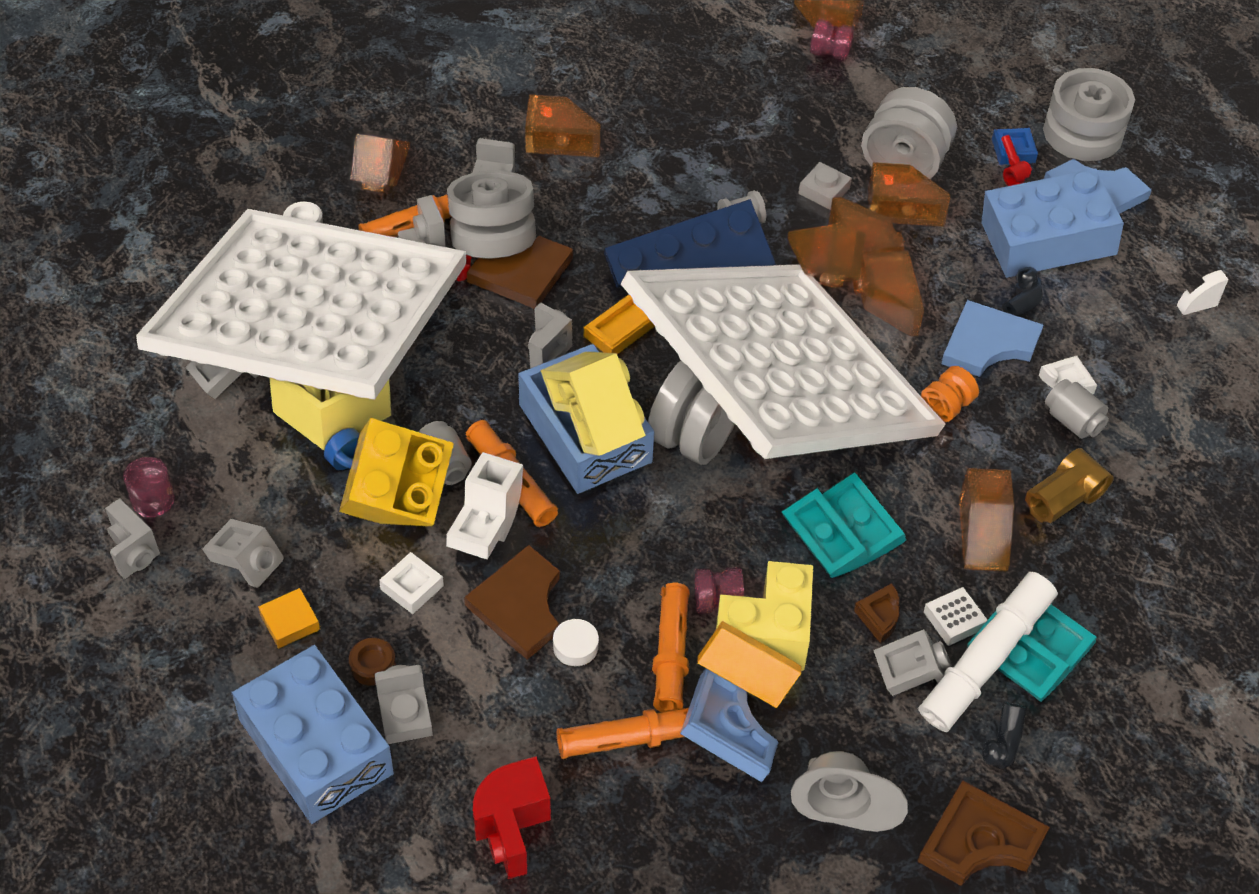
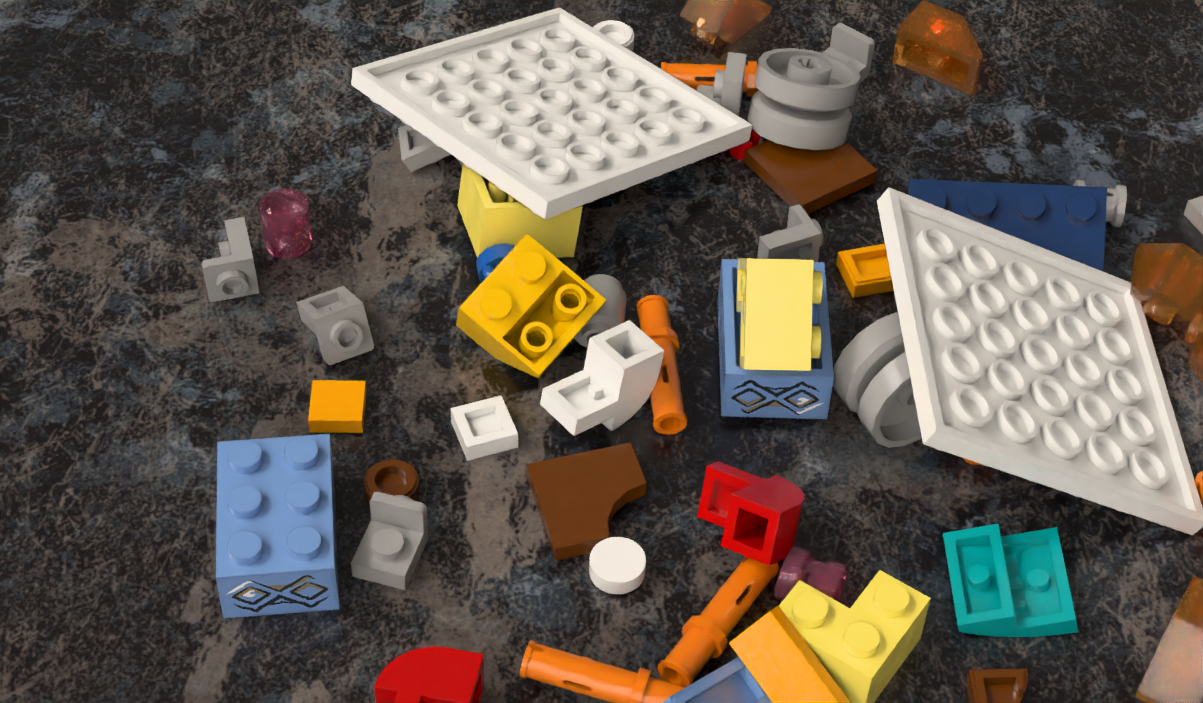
camera: 30 degrees right, 5 degrees down
(655, 554) = (756, 512): none -> red brick

